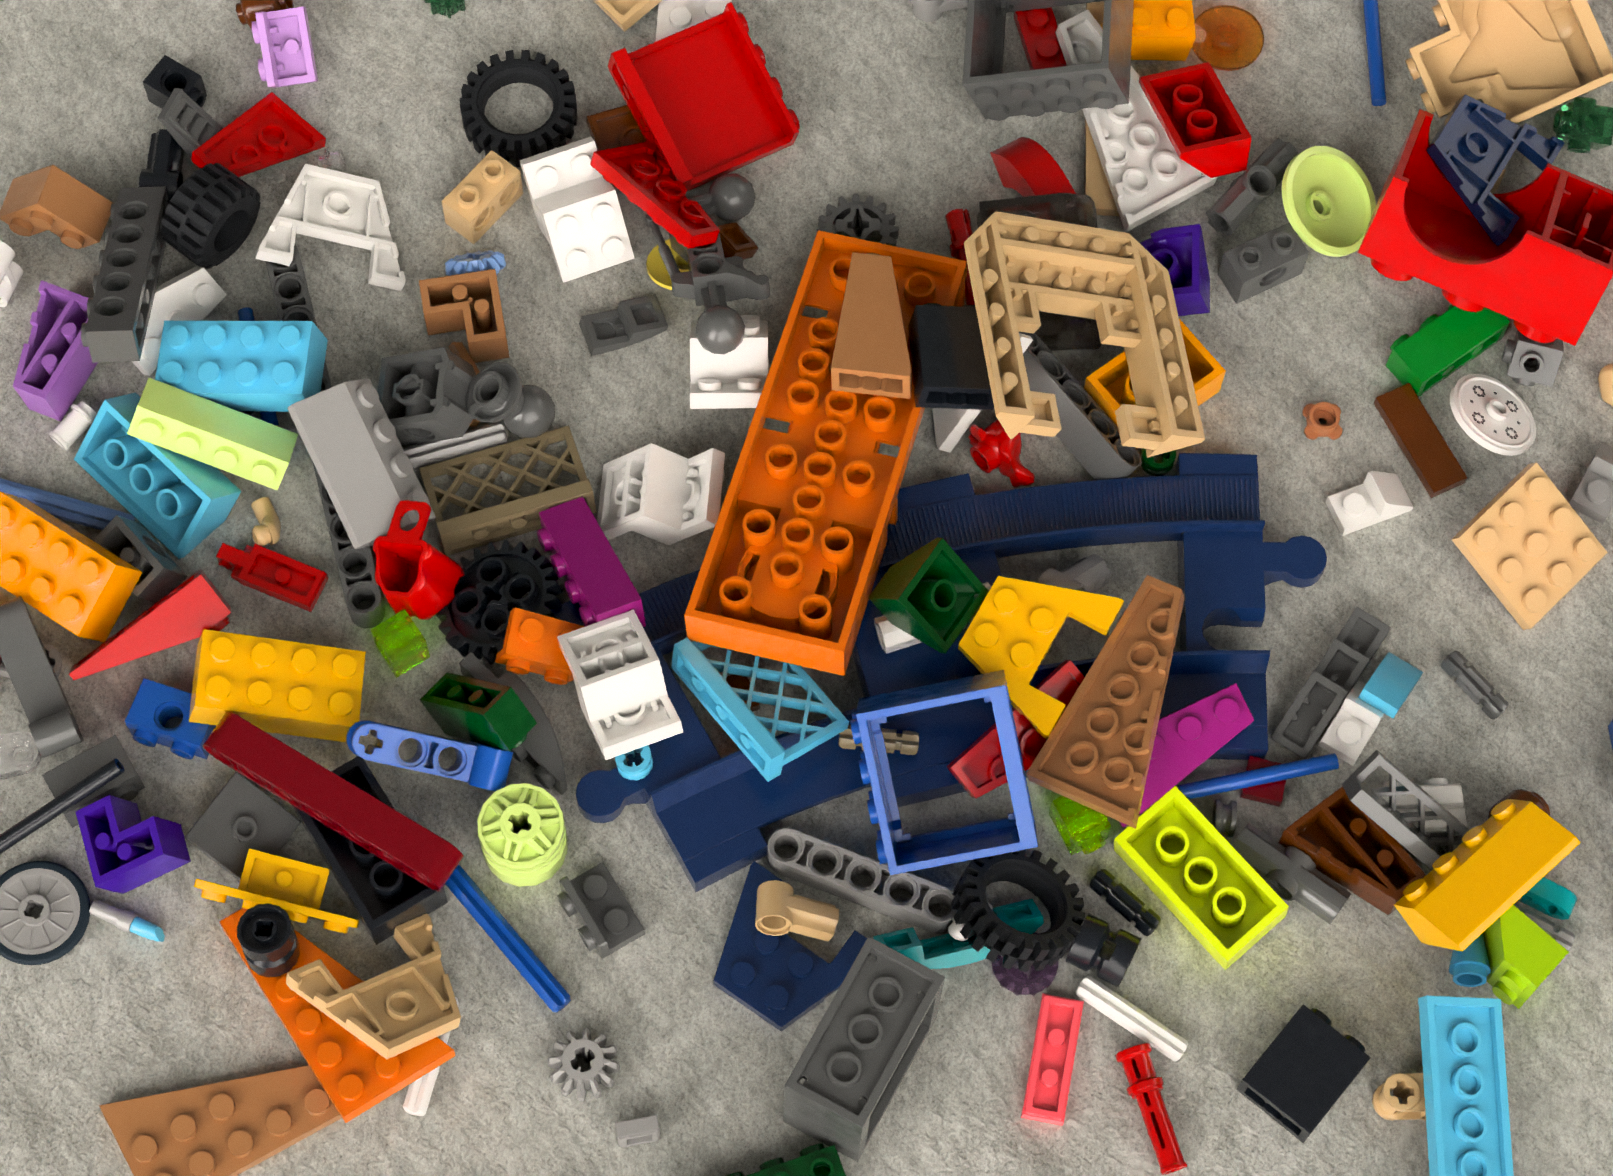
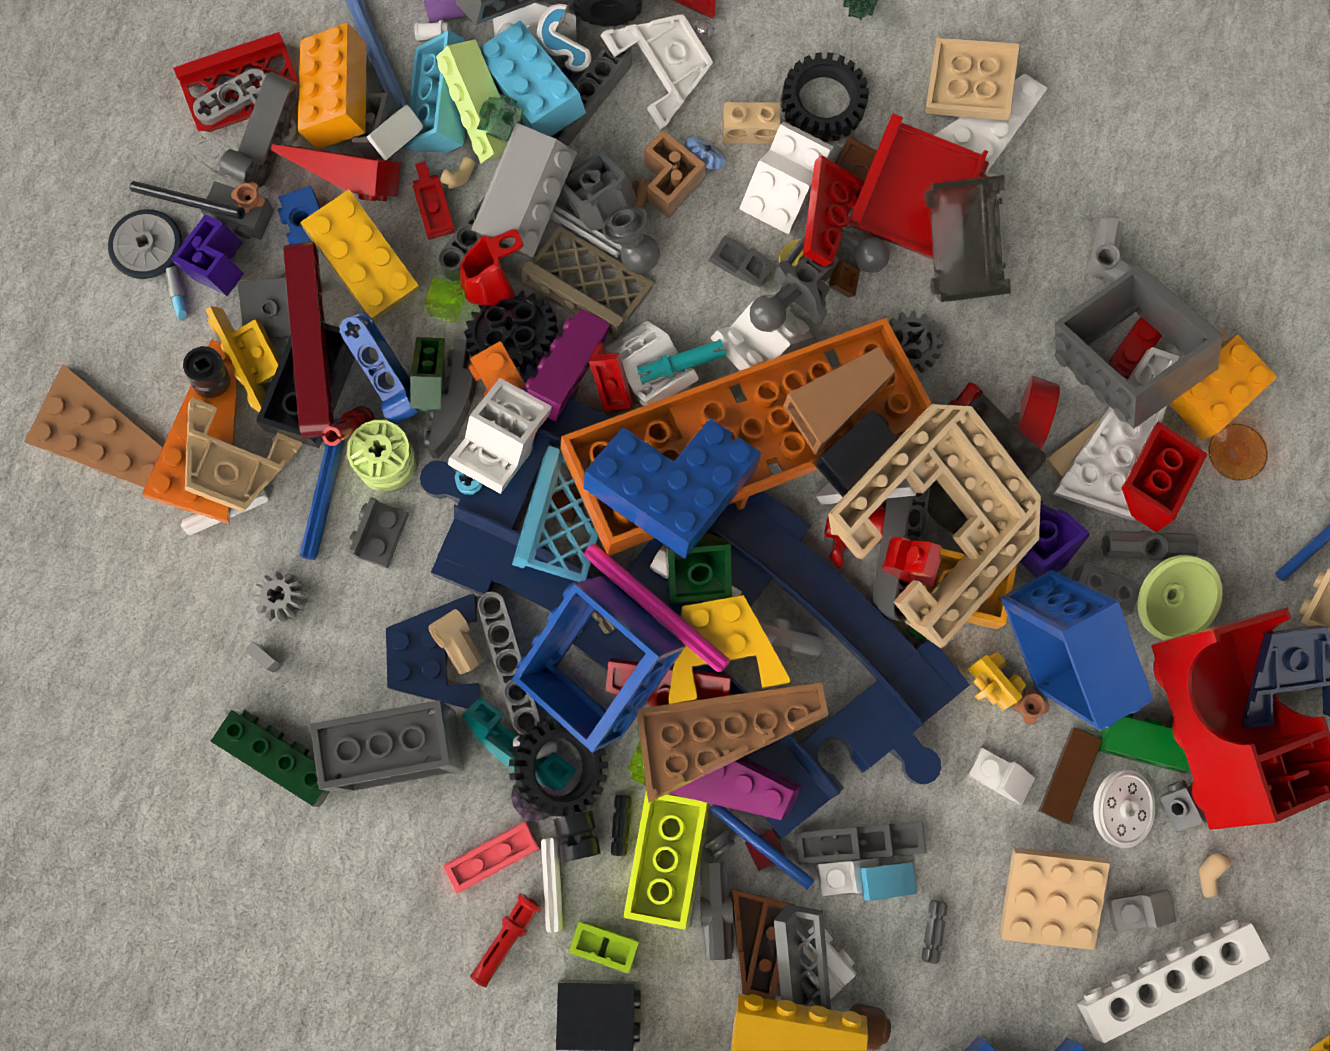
camera: 50 degrees right, 10 degrees up
(94, 740) = (244, 190): none -> nougat plate
(170, 539) = (395, 132): none -> white slope
(195, 300) = (559, 46): none -> animal
(264, 420) = (499, 117): none -> clear green brick
(467, 840) = (347, 425): none -> red pin
(649, 538) = (610, 379): none -> red panel
(687, 467) = (681, 361): none -> teal pin
(803, 92) = (967, 237): none -> clear smoke windscreen
(842, 557) = (669, 497): none -> blue piece
(939, 667) = (657, 608): none -> dark pink axle
(1099, 389) = (912, 560): none -> red arch
(1239, 1007) = (604, 946): none -> lime brick
(1251, 327) = (1077, 648): none -> blue window
(1272, 432) = (994, 683): none -> yellow hips

